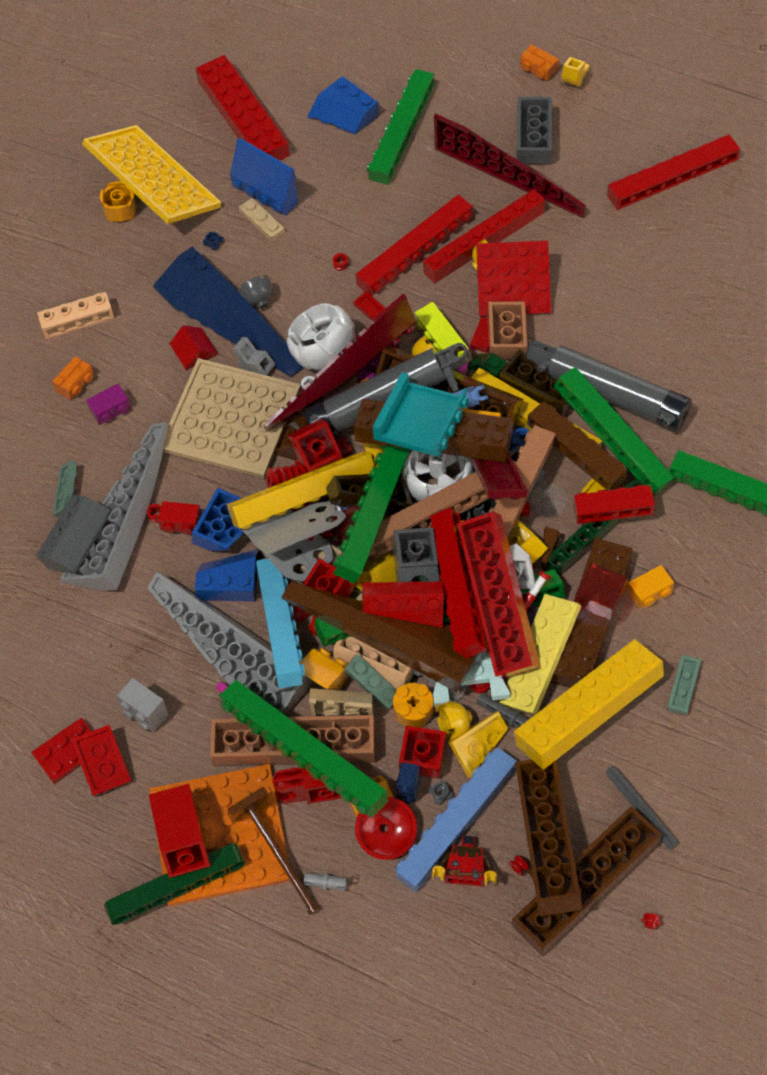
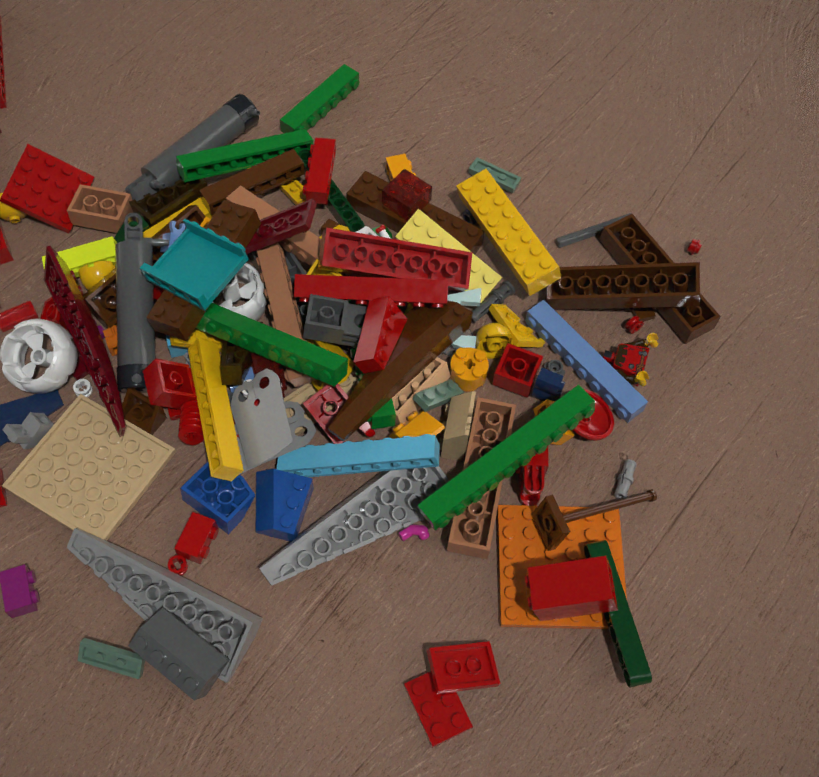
camera: 85 degrees left, 0 degrees up
(142, 706) = (413, 611): light grey brick -> none
(480, 338) = (91, 234): red tile -> none

